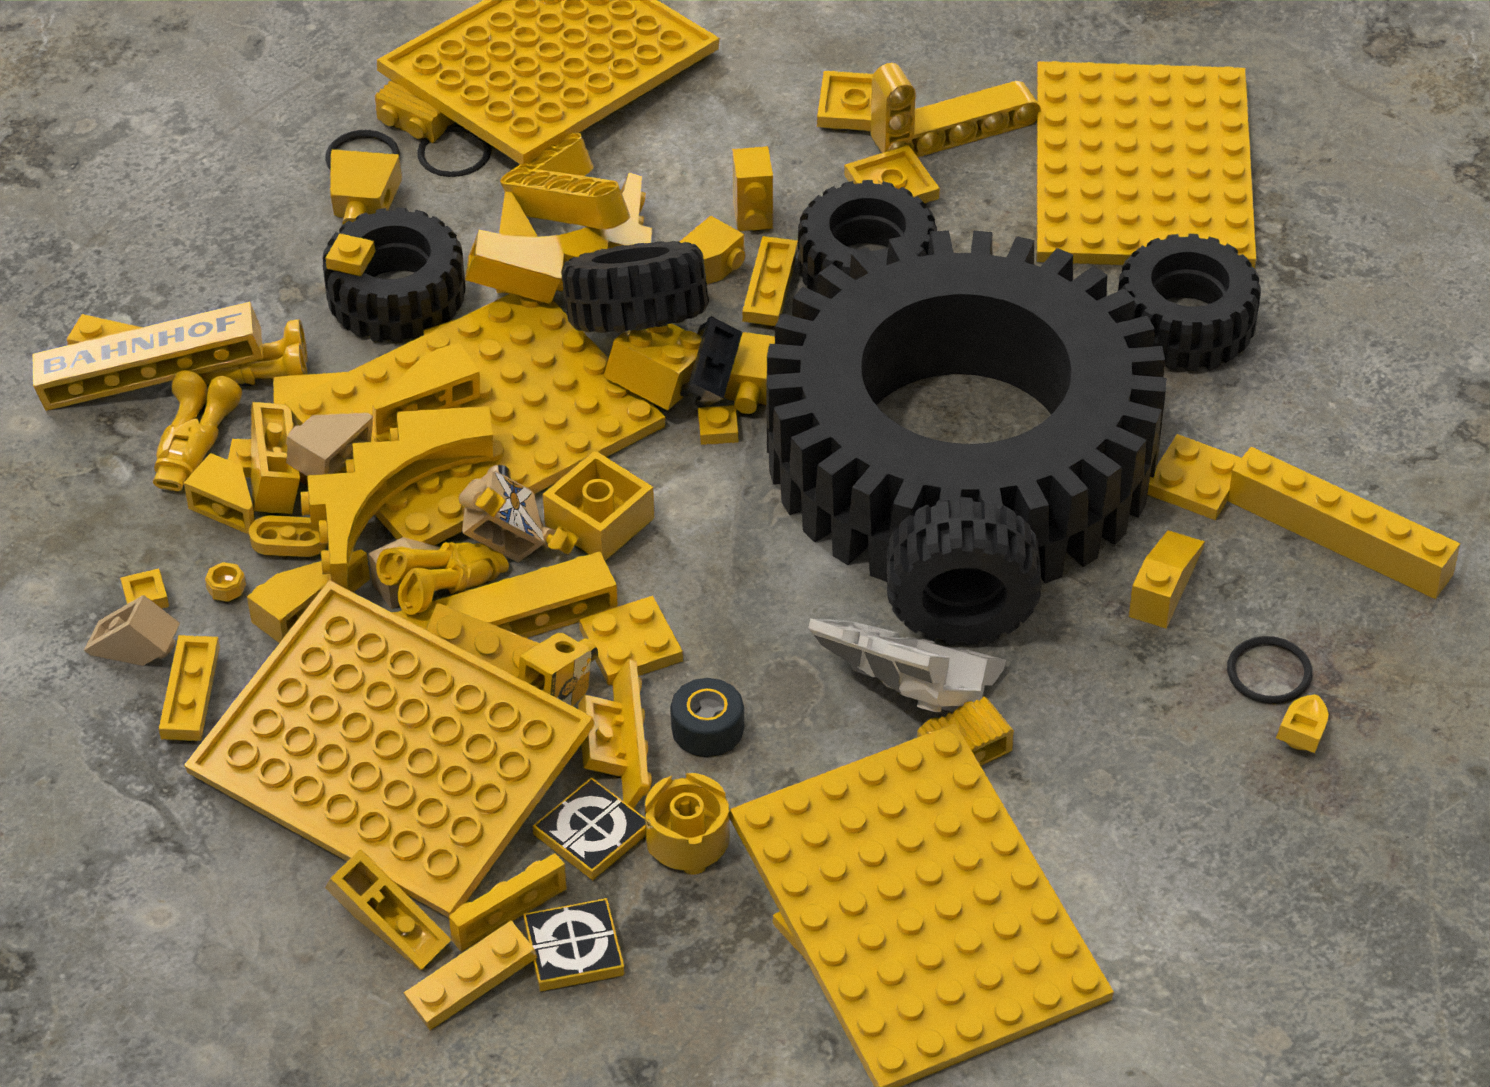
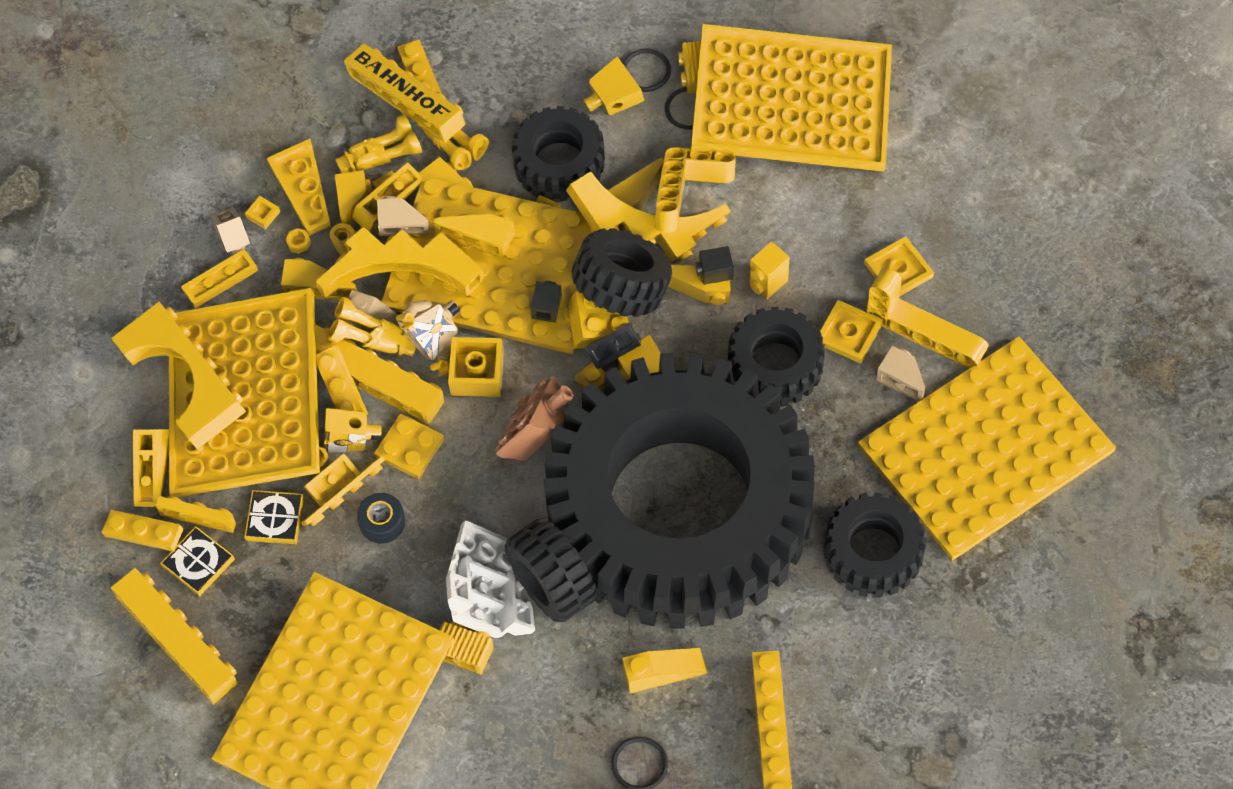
camera: 55 degrees right, 15 degrees up
(141, 532) = (301, 183): none -> yellow wing
(215, 777) = (212, 402): none -> yellow arch
(350, 254) = (534, 126): yellow plate -> none
(587, 387) = (546, 301): none -> pearl dark grey brick
(662, 1025) = (174, 635): none -> yellow brick
(687, 822) = (296, 544): yellow brick -> none
(705, 217) = (715, 265): none -> pearl dark grey brick
(737, 480) = (534, 420): none -> nougat slope
(770, 280) = (714, 328): yellow plate -> none
(992, 169) = (901, 373): none -> tan slope
(1194, 477) = (751, 632): yellow plate -> none

